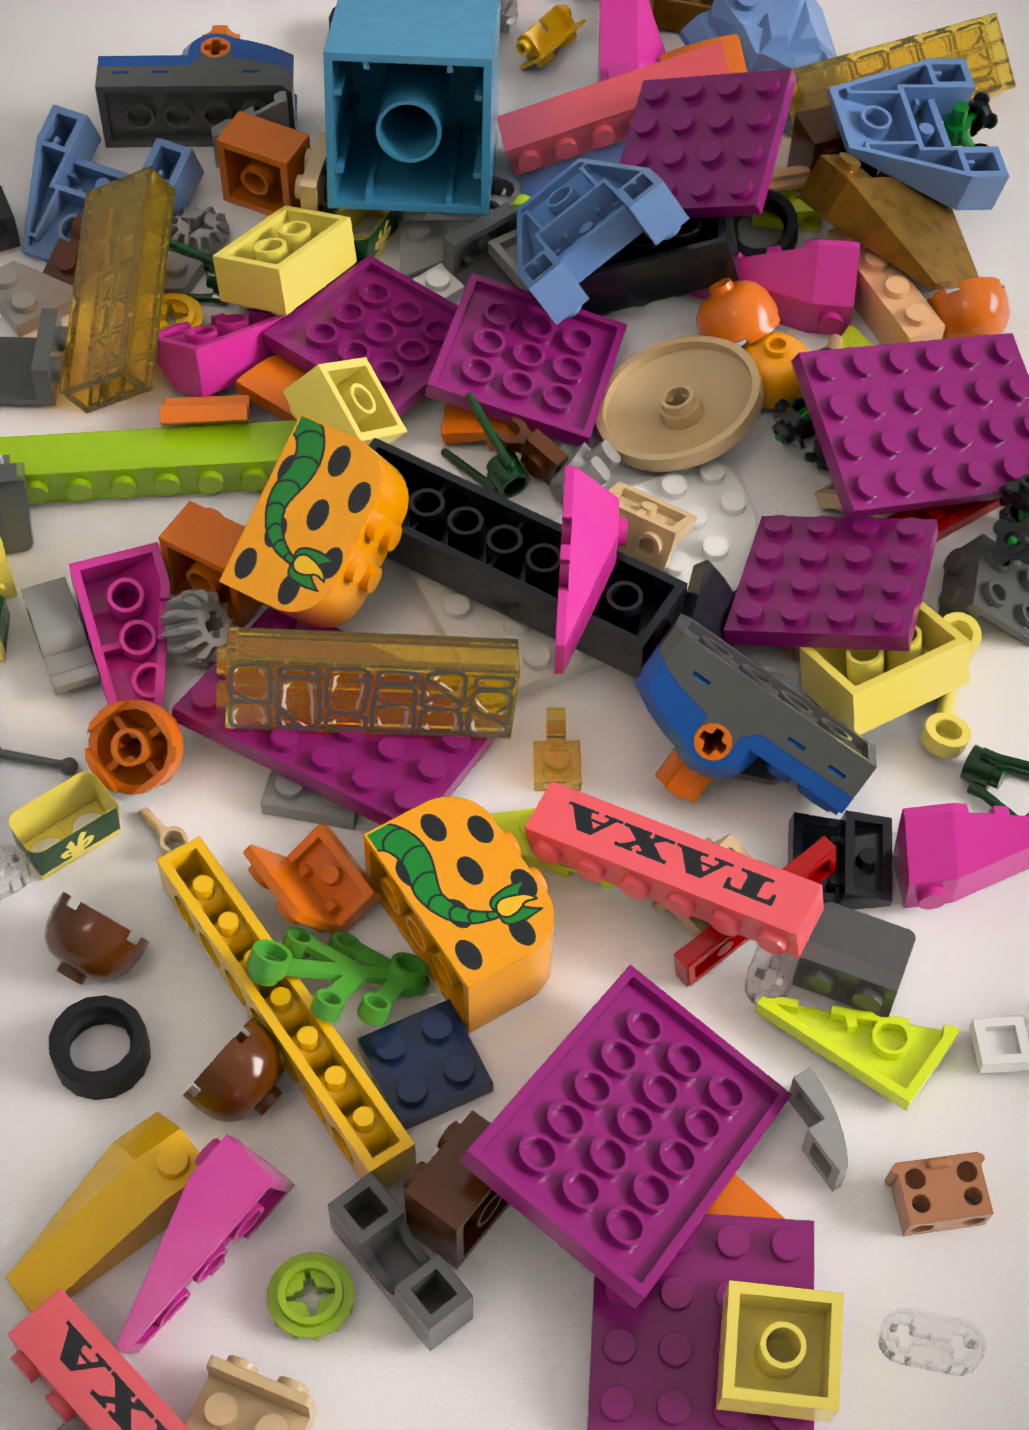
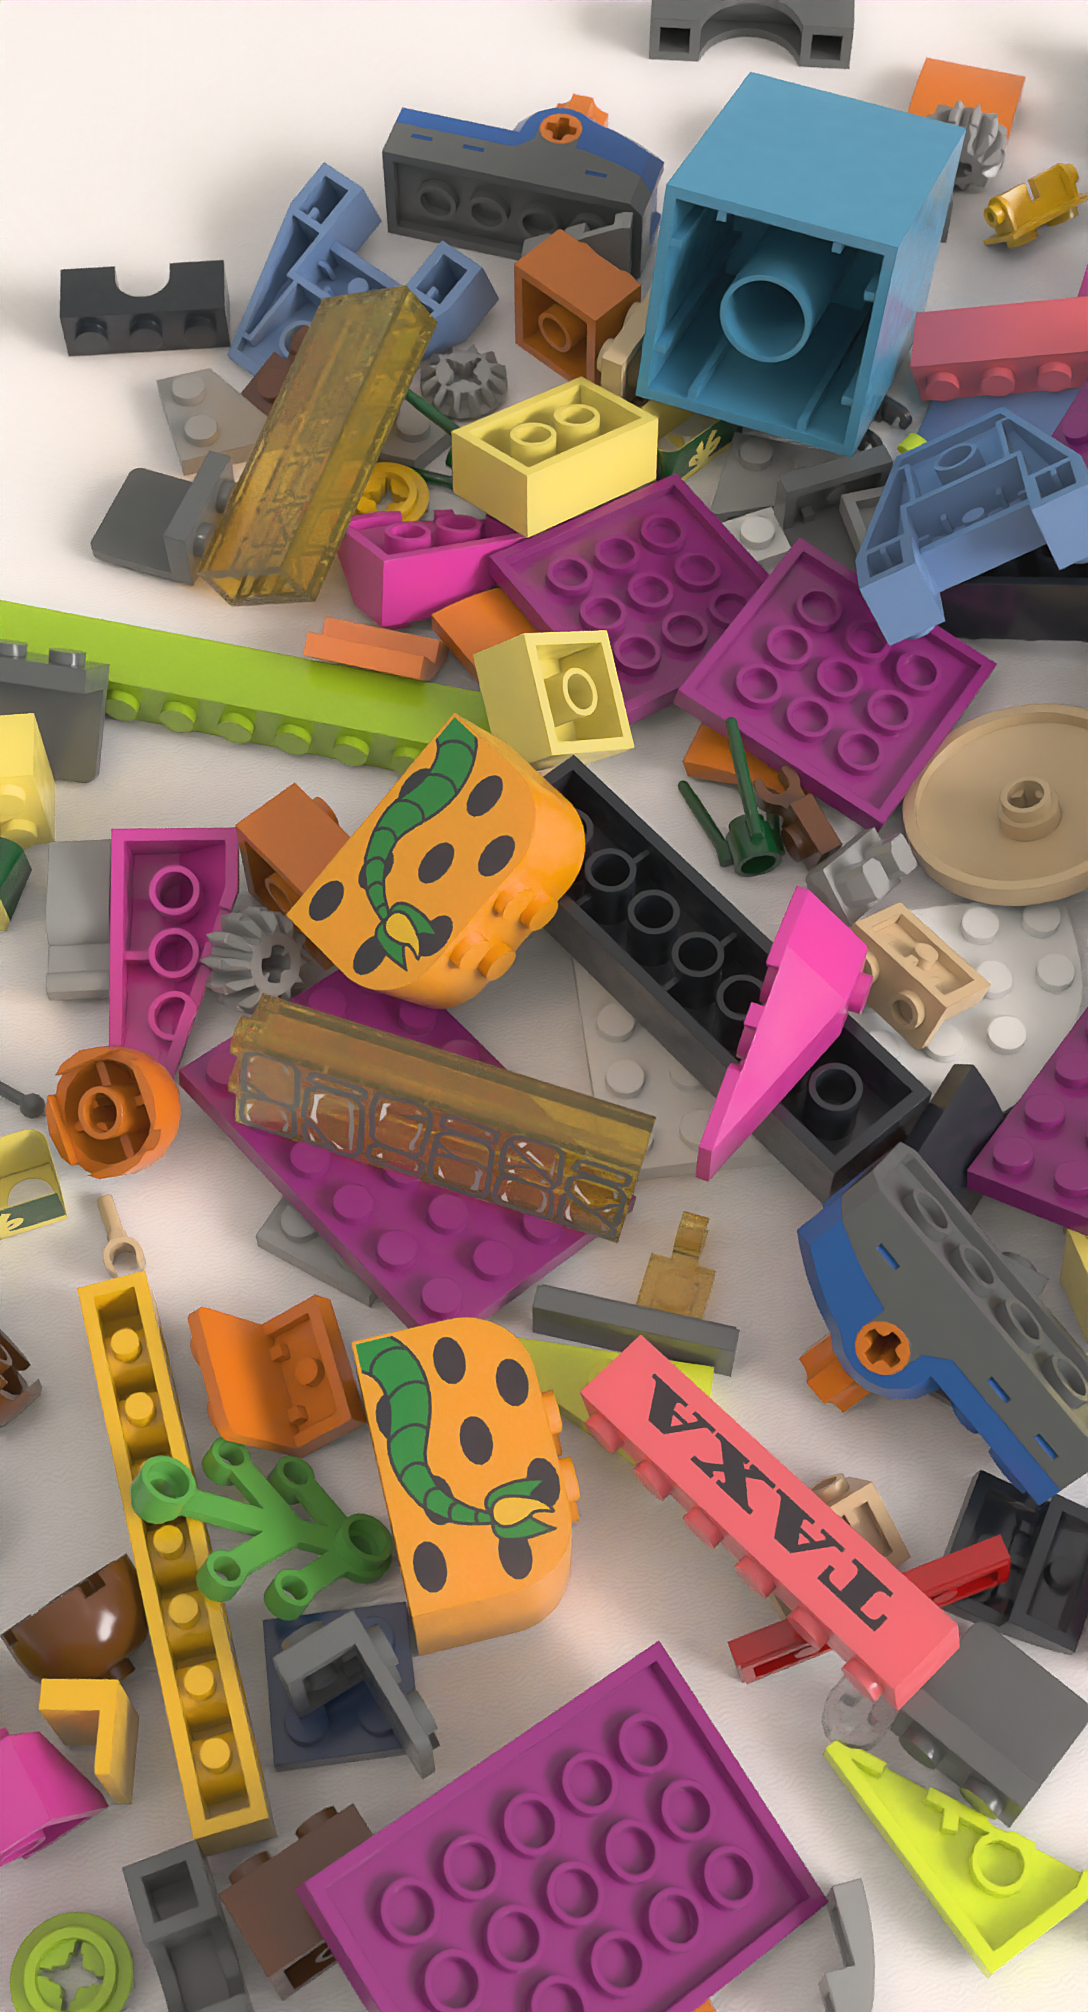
camera: 20 degrees right, 5 degrees up
(270, 1126) = (96, 1715): none -> yellow panel
(447, 1028) = (332, 1658): none -> dark grey bracket
(525, 789) = (617, 1324): none -> dark grey tile

